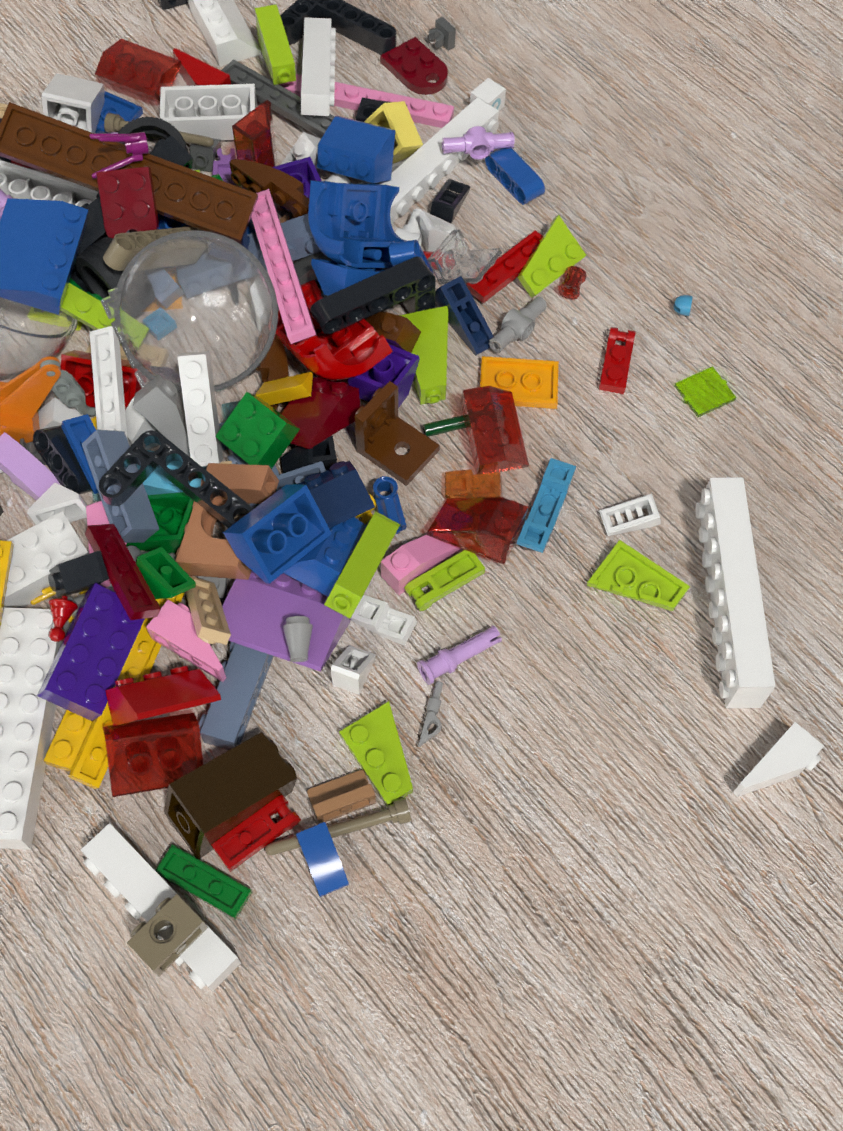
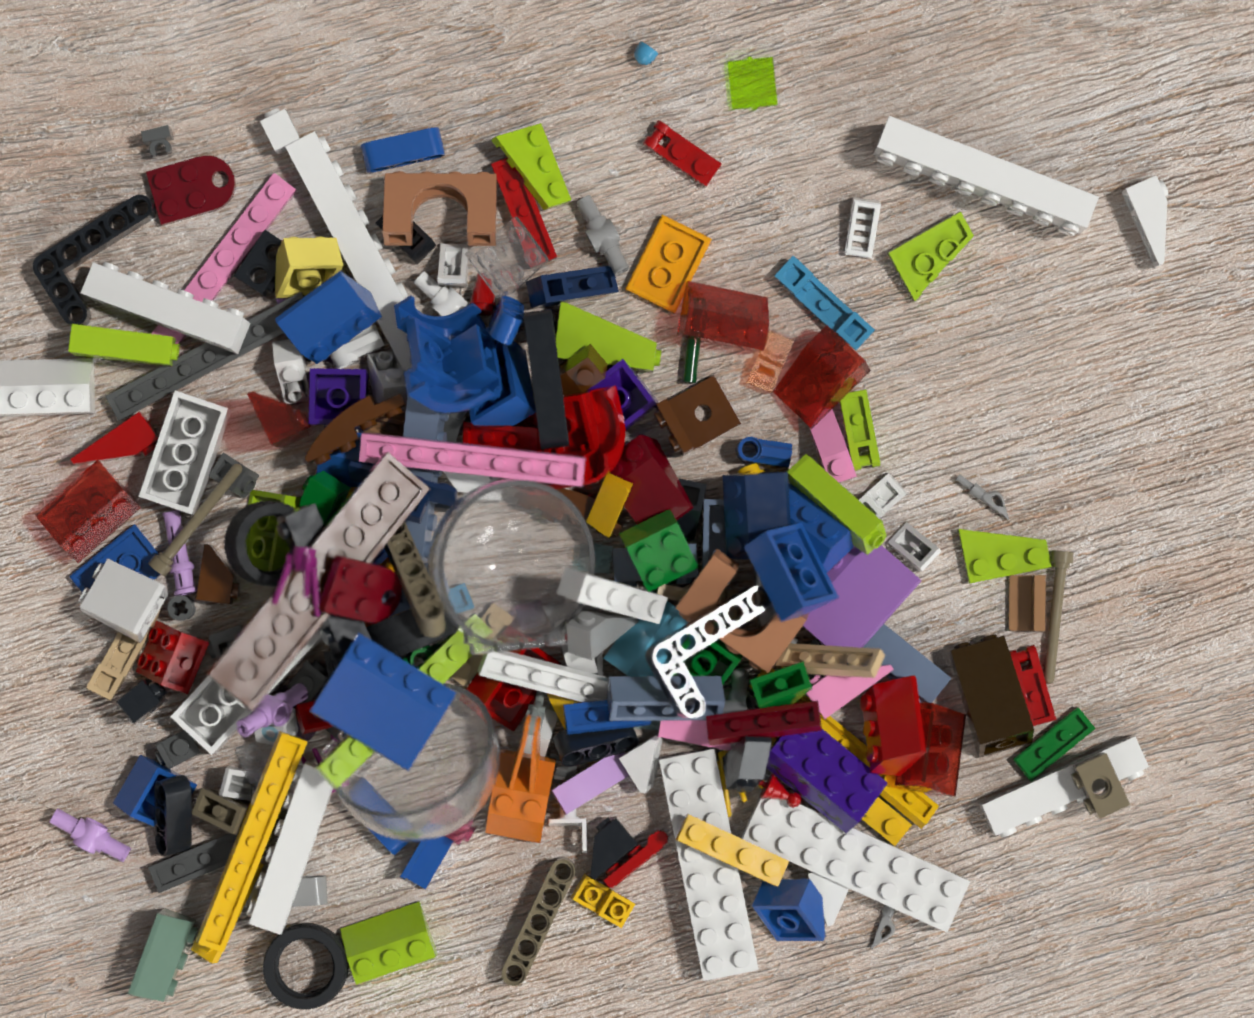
camera: 70 degrees left, 25 degrees up
(222, 166) = (270, 461): medium lavender plate -> none
(298, 637) = (888, 589): light grey cone -> none
(322, 859) = (1078, 639): blue slope -> none
(447, 660) = (940, 461): lavender pin -> none
(478, 142) = (359, 177): lavender pin -> none
(479, 181) = (408, 191): none -> nougat arch
(573, 279) = (572, 155): clear red bush -> none

